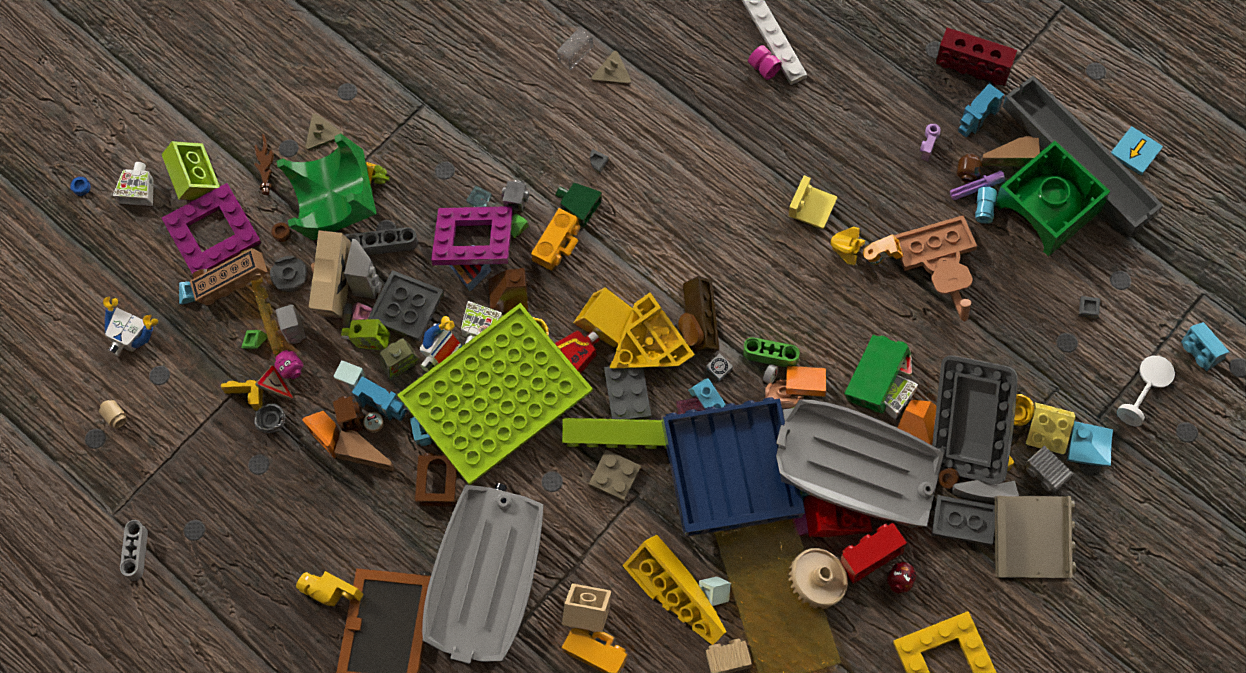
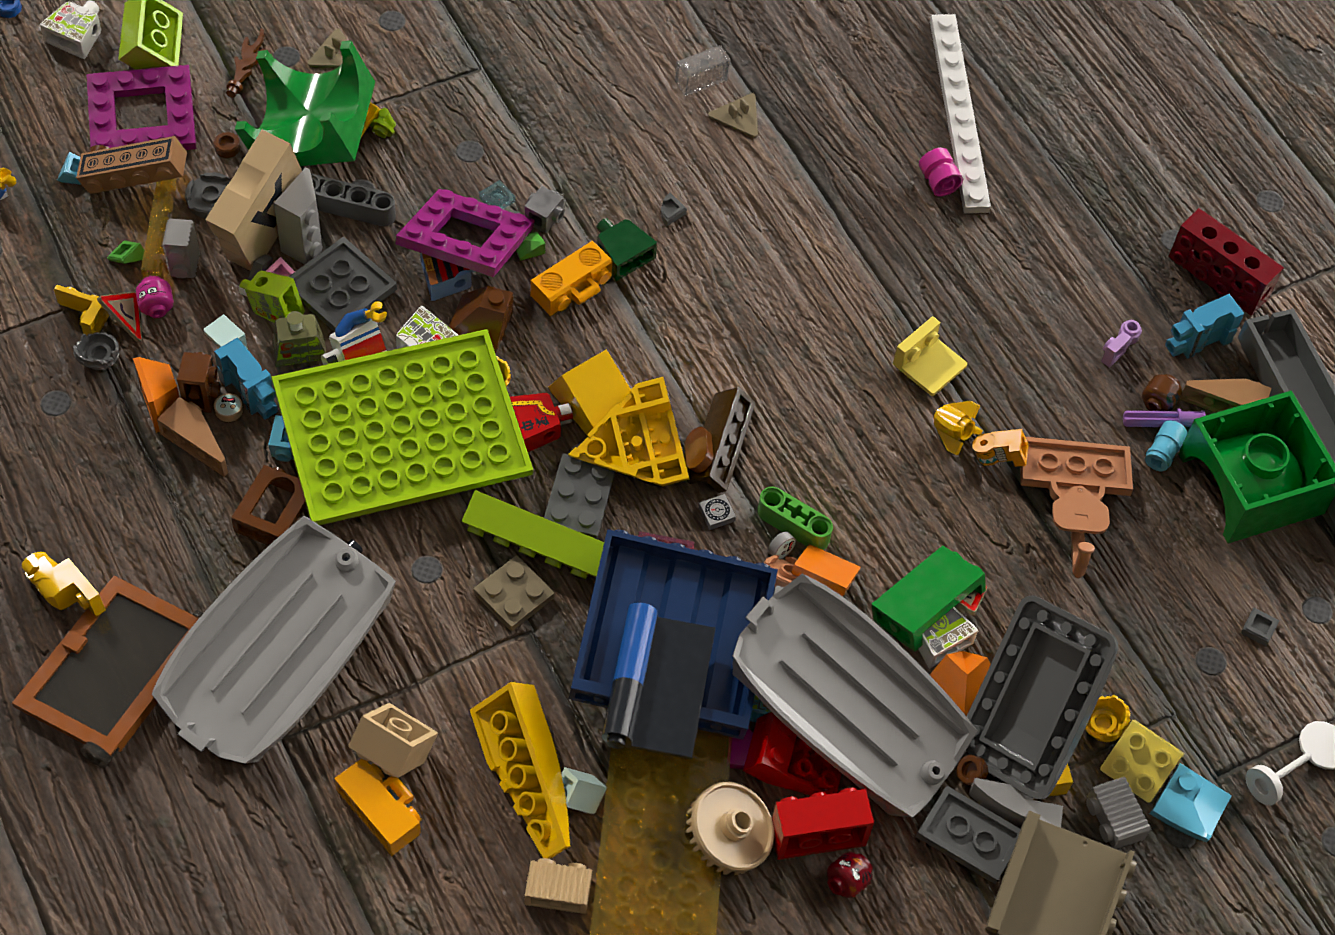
camera: 10 degrees right, 10 degrees down
(707, 394) = (683, 531): medium azure bracket -> none
(739, 507) = (658, 684): none -> black door

